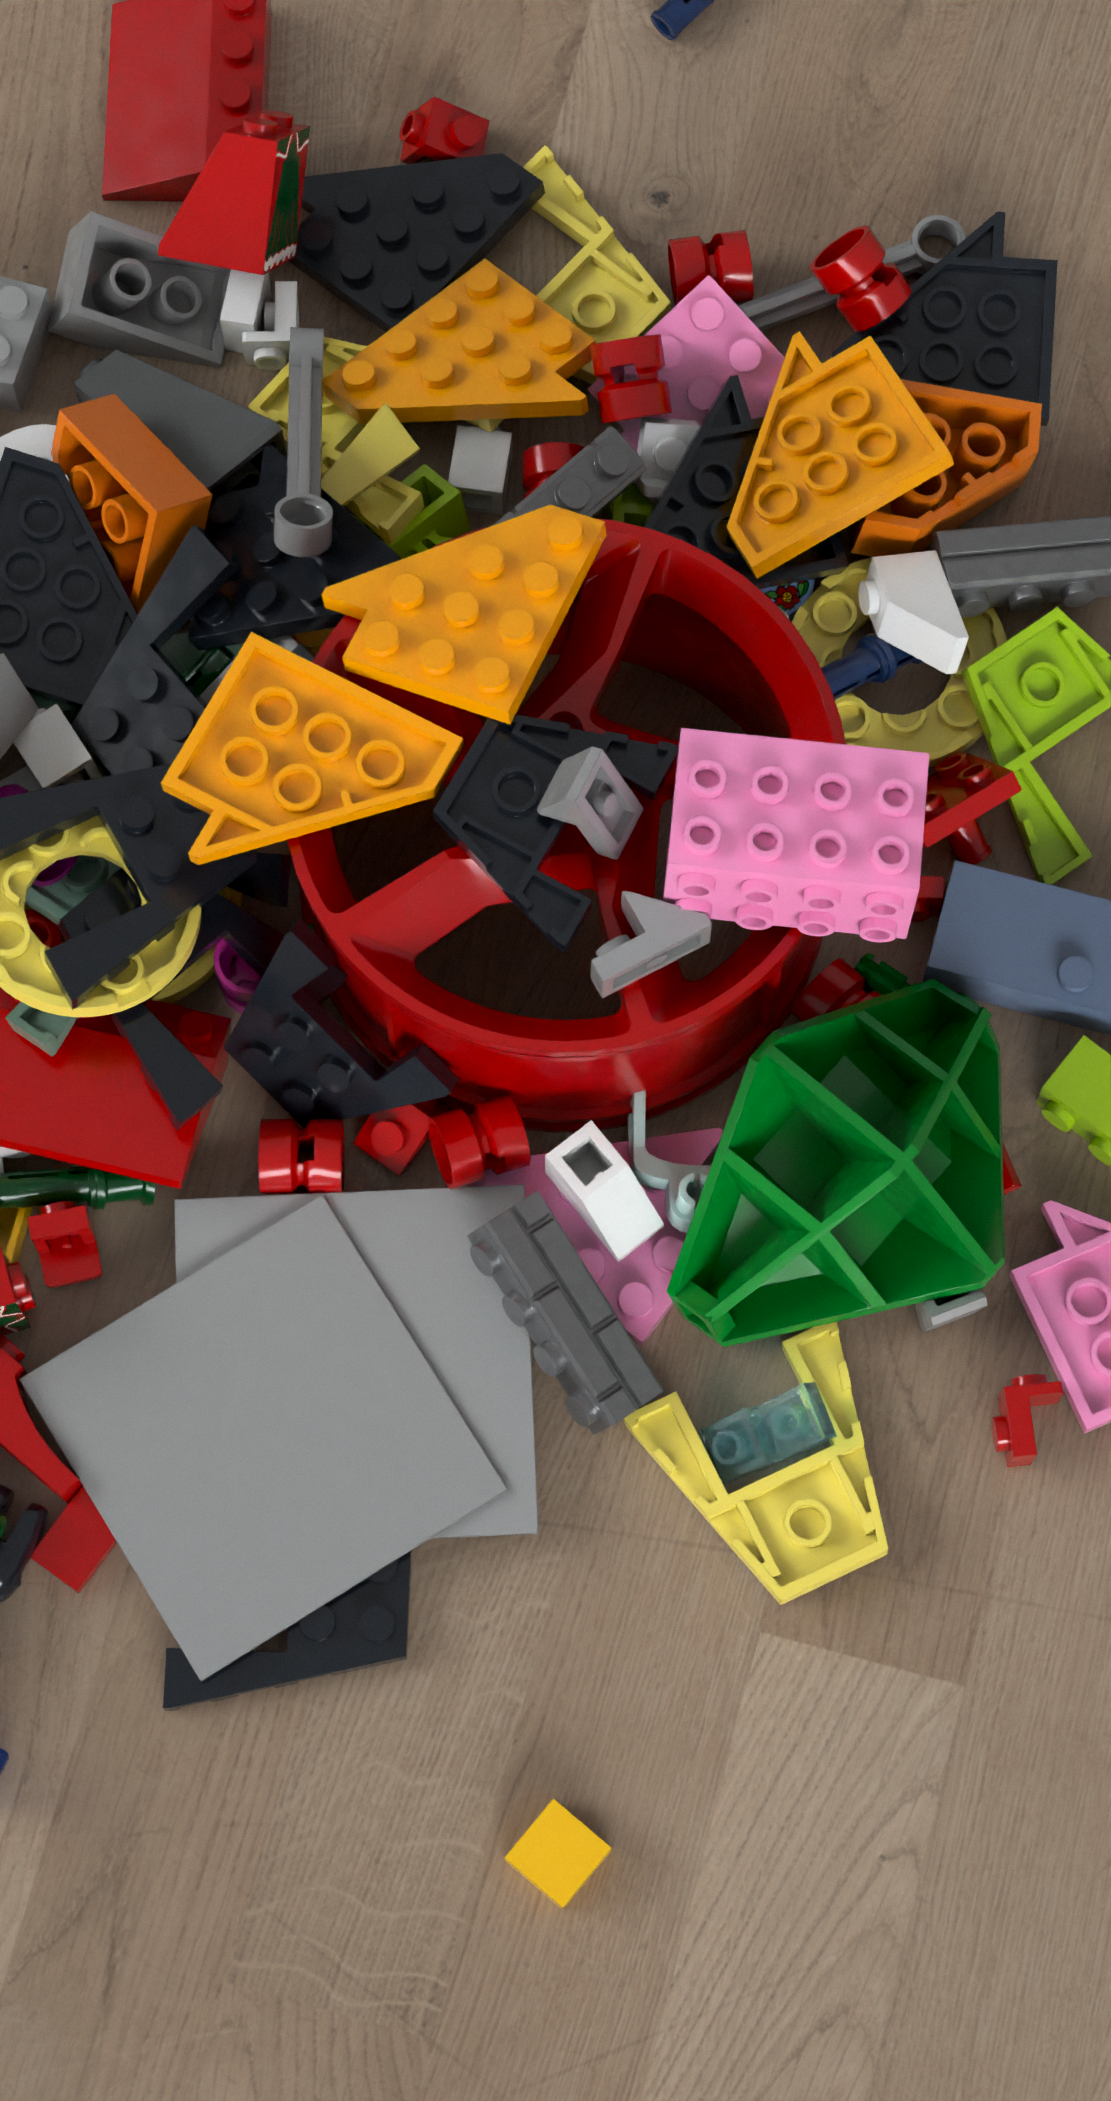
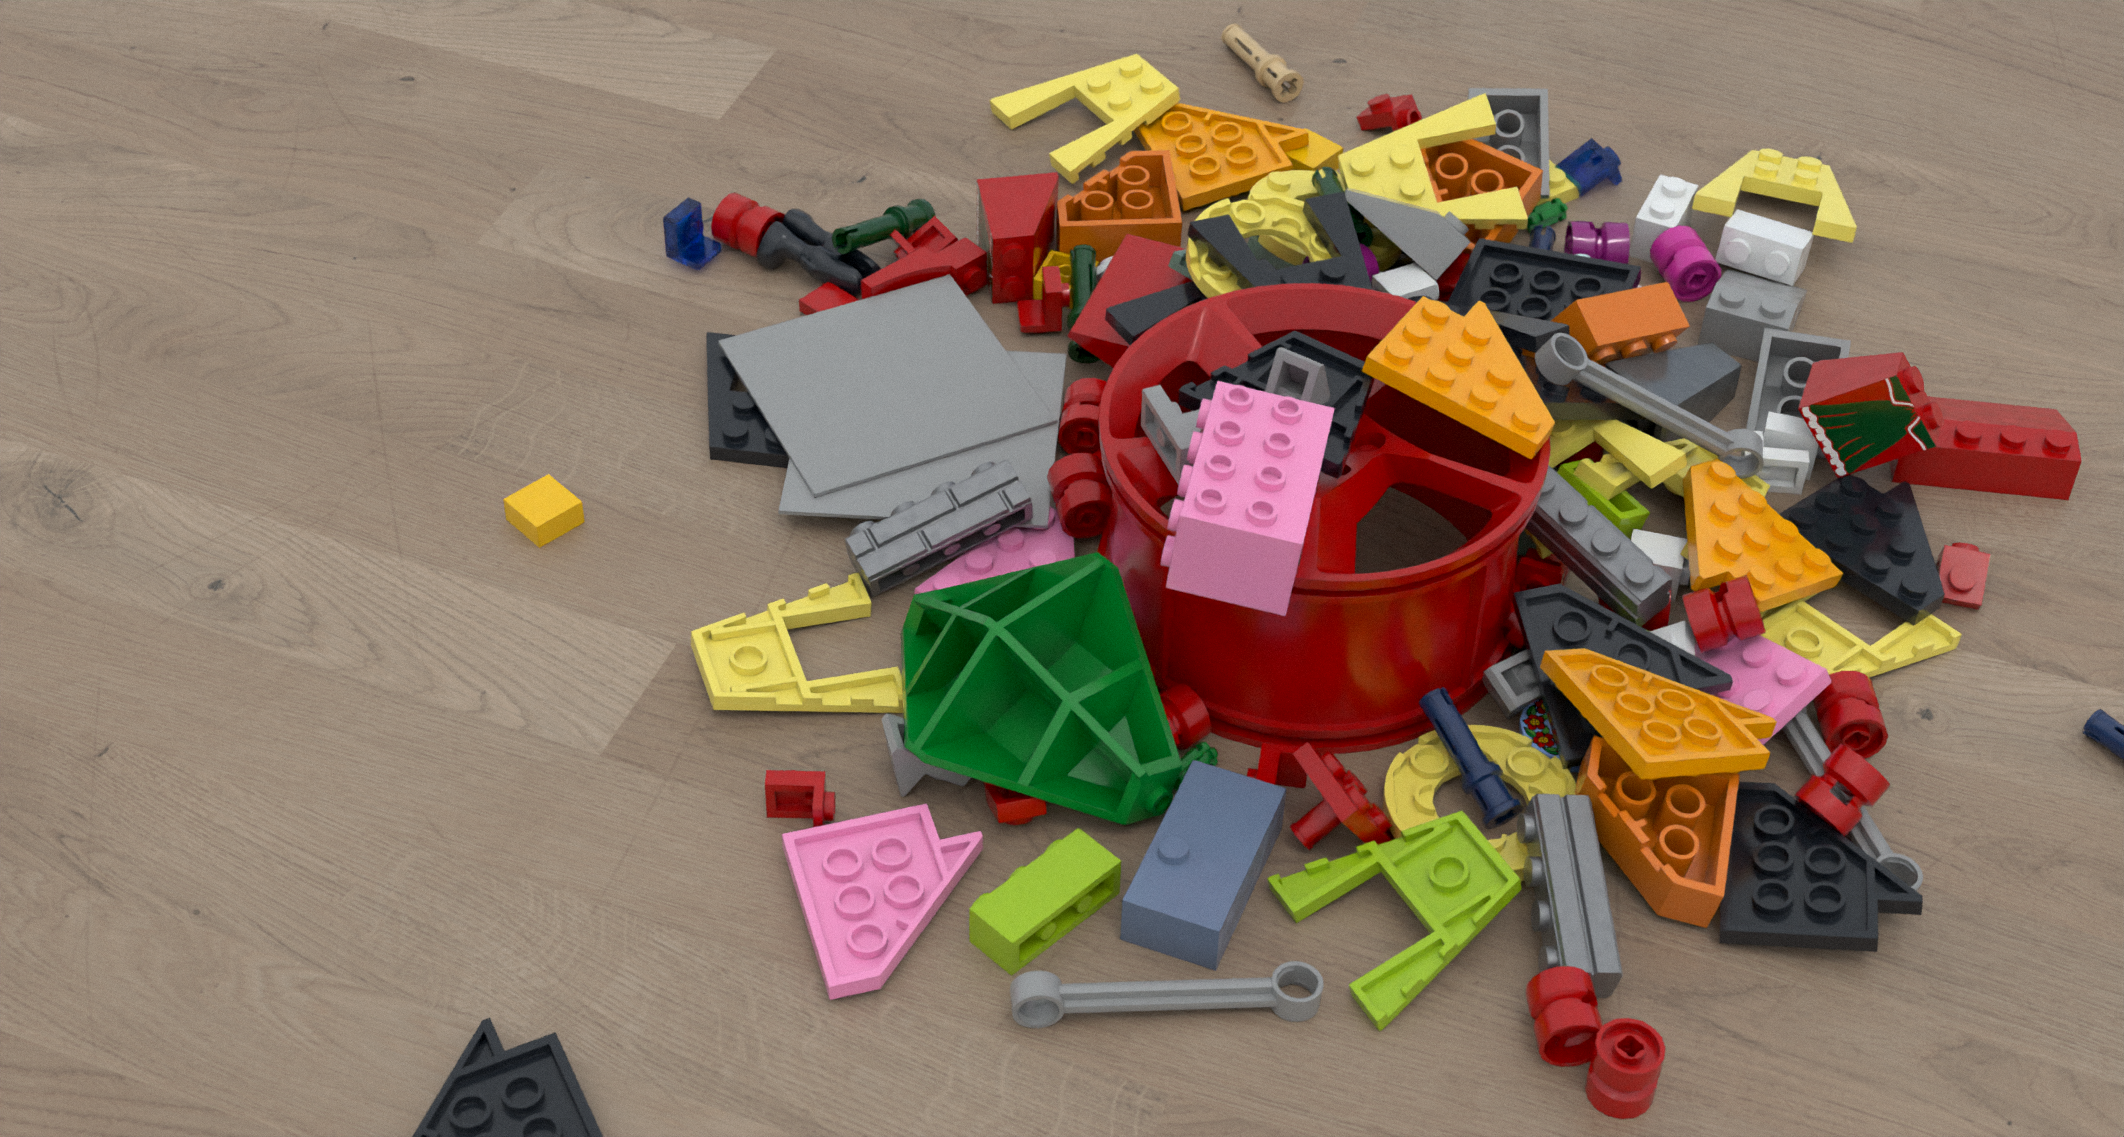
camera: 95 degrees right, 30 degrees down
(300, 753) = (1351, 279): light orange wing -> none
(603, 1190) = (1032, 539): white slope -> none
(768, 1433) = (825, 648): clear light blue slope -> none
(915, 608) = (1516, 777): white slope -> none

